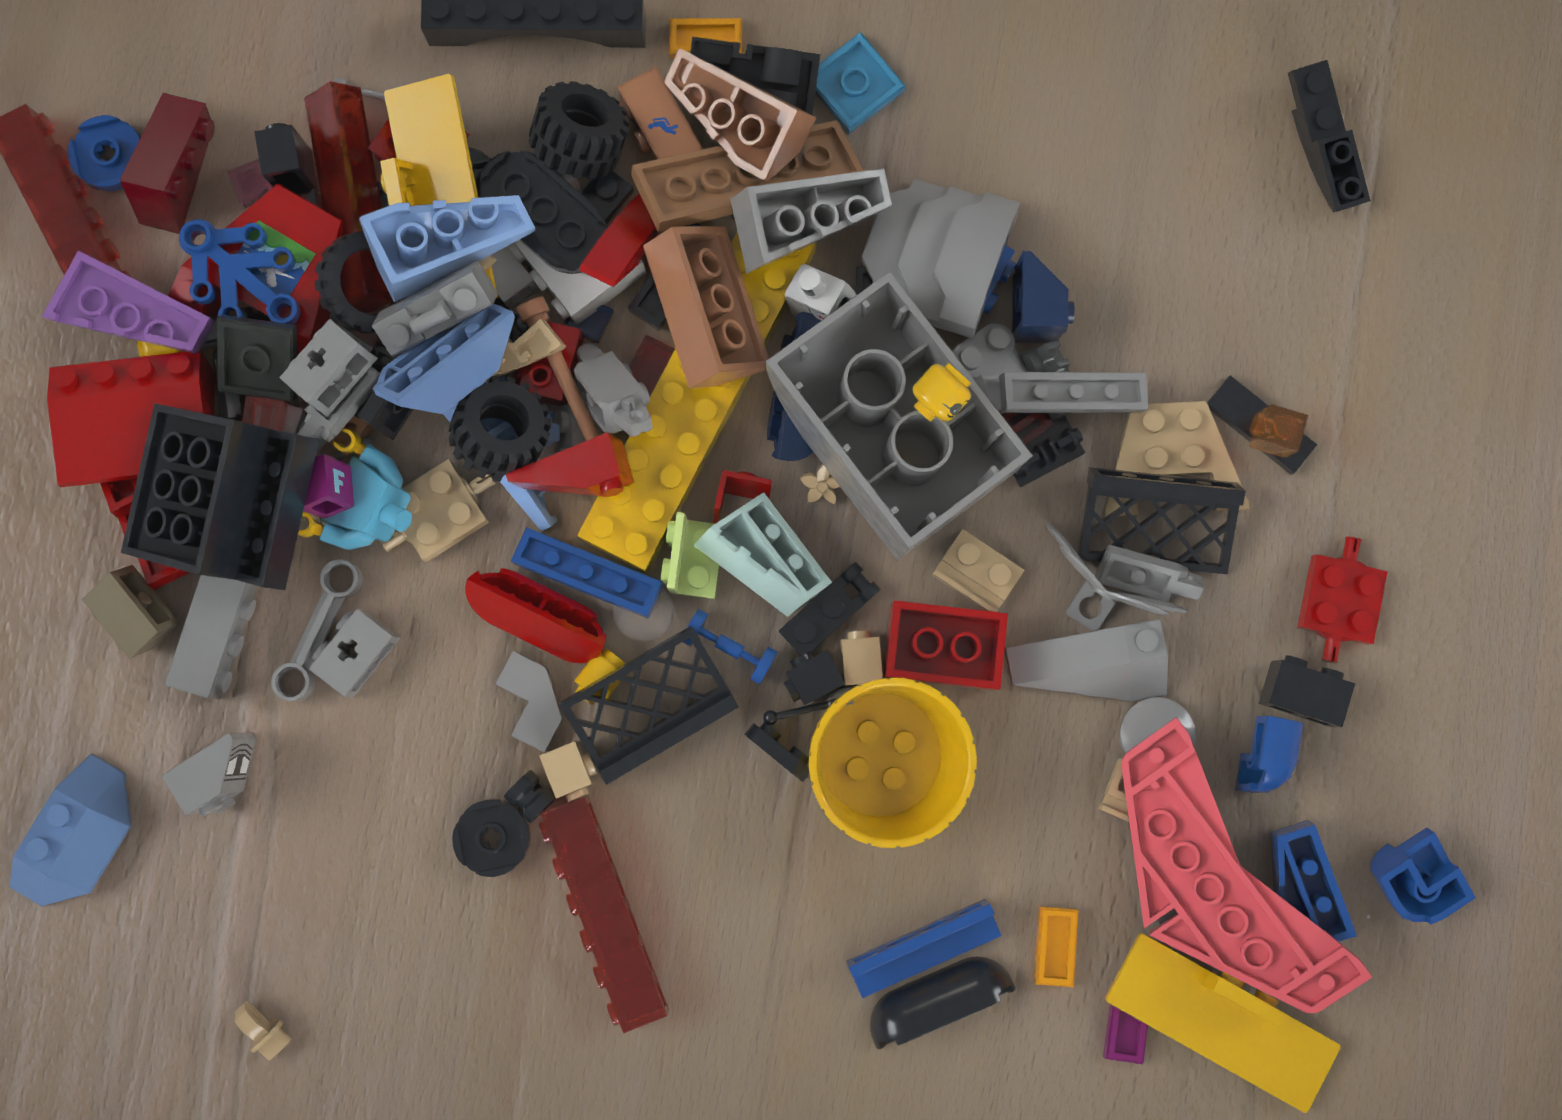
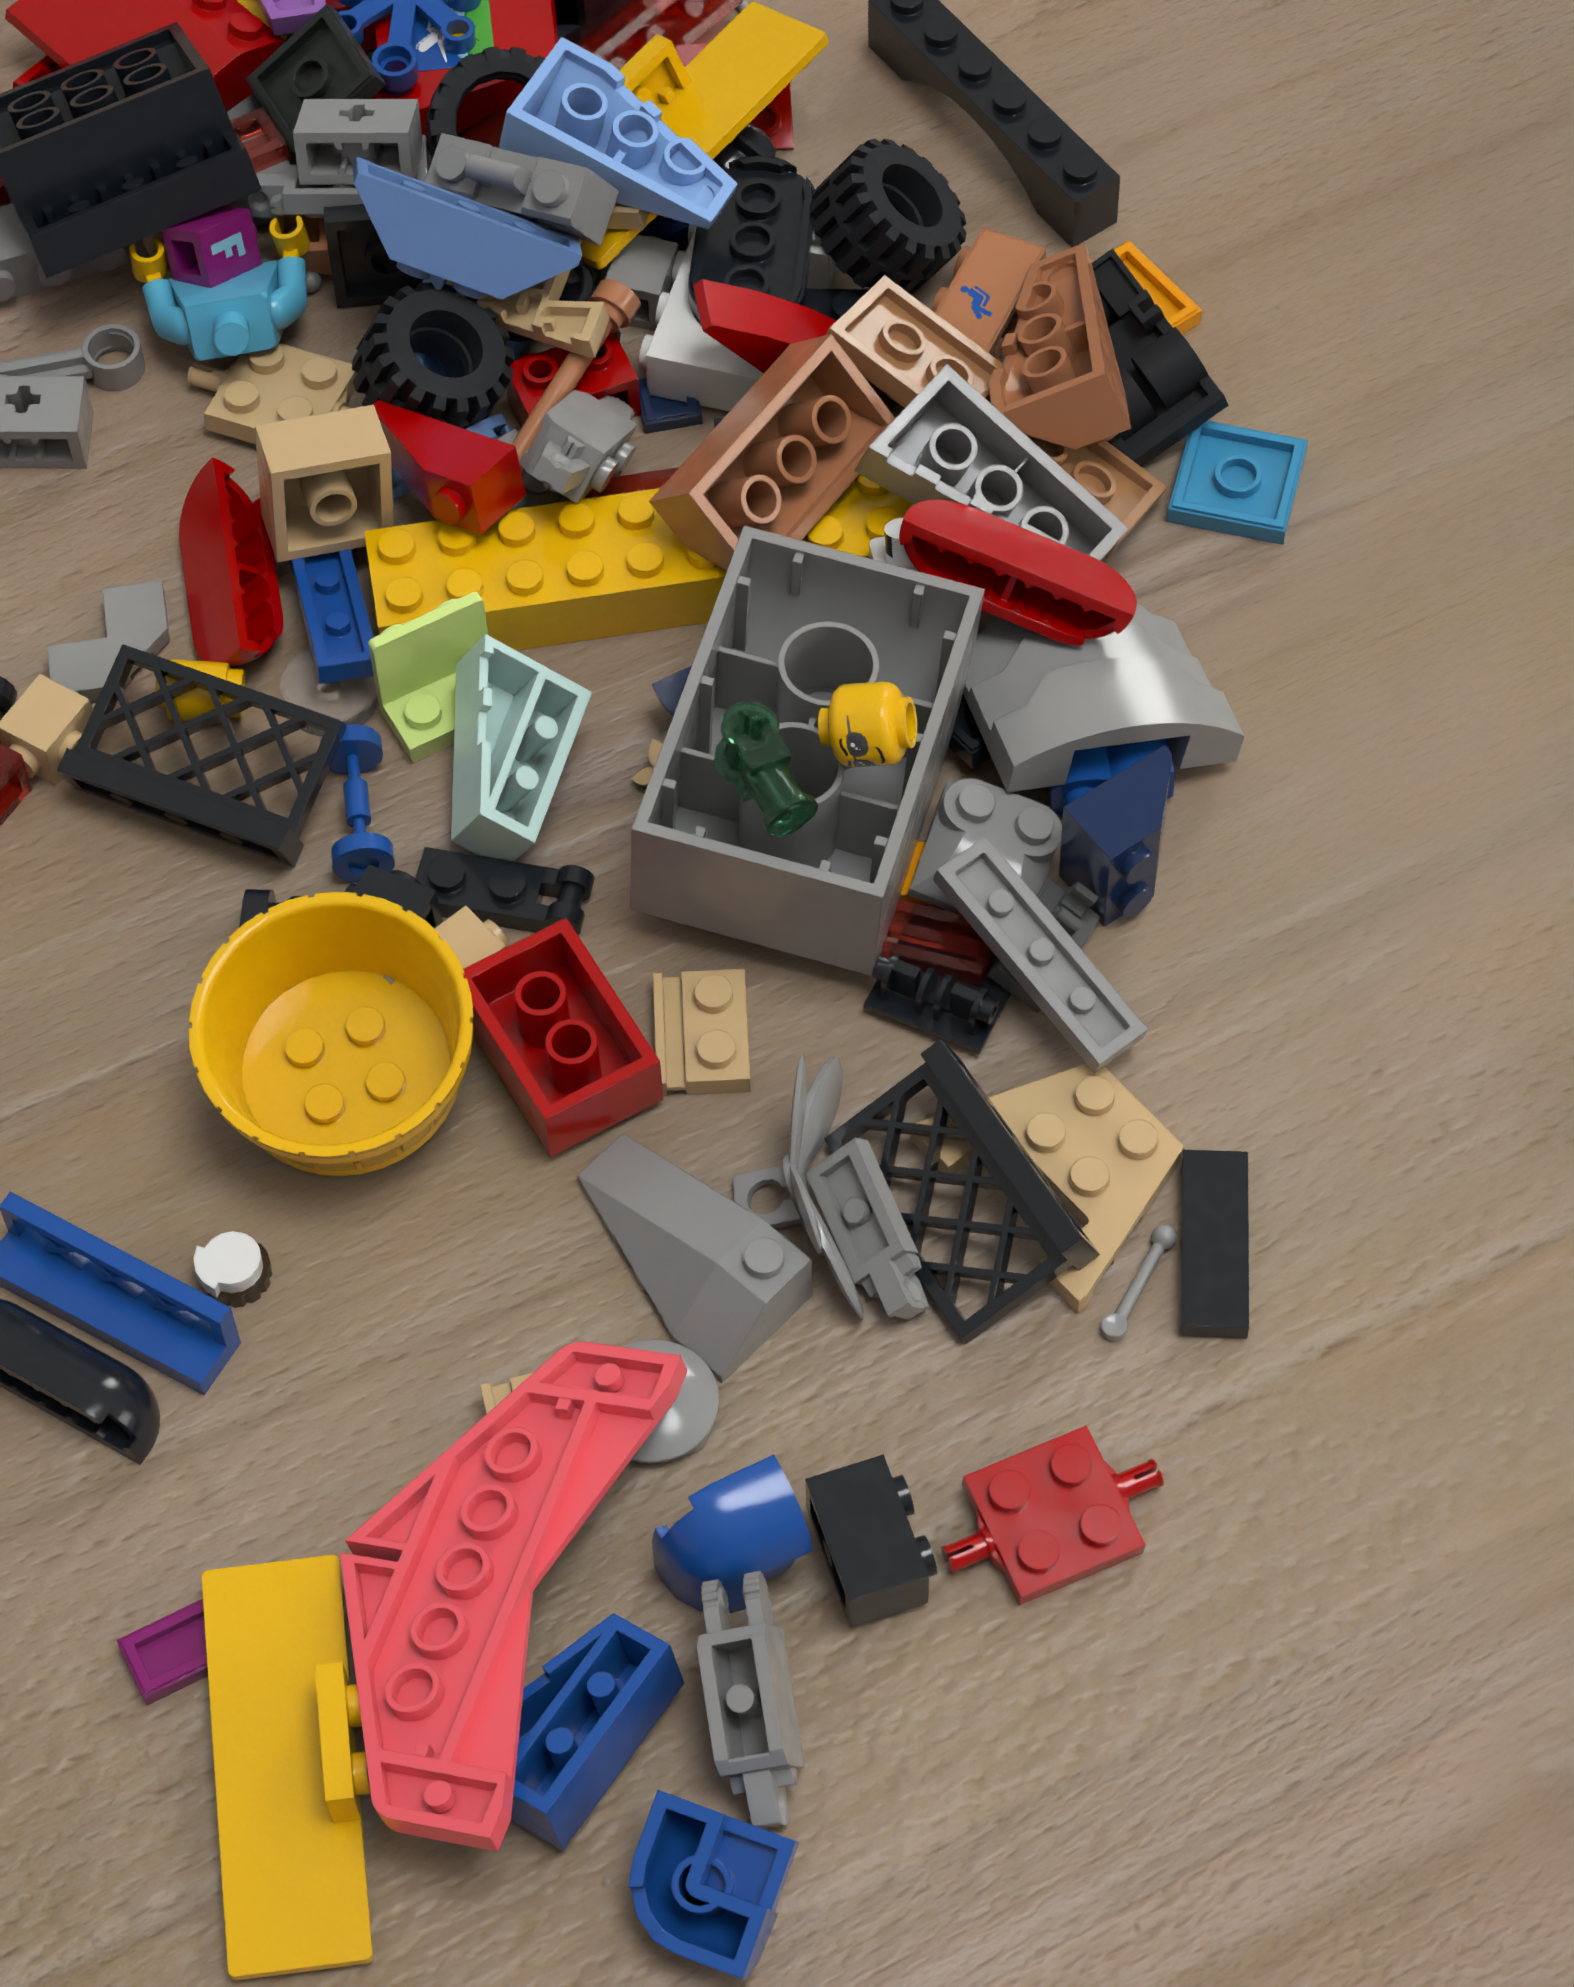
camera: 60 degrees right, 25 degrees down
(539, 536) = (324, 481): none -> tan brick
(739, 484) = (581, 665): red bracket -> none
(875, 242) = (1023, 573): none -> red brick
(930, 463) = (758, 766): none -> clear green connector
(946, 879) = (233, 1269): none -> white piece
(1056, 946) = (238, 1472): light orange tile -> none
(1266, 500) = (1115, 1325): none -> light grey hinge
(1277, 430) = (1212, 1240): clear orange brick -> none
(1350, 801) = (750, 1700): none -> light grey hinge

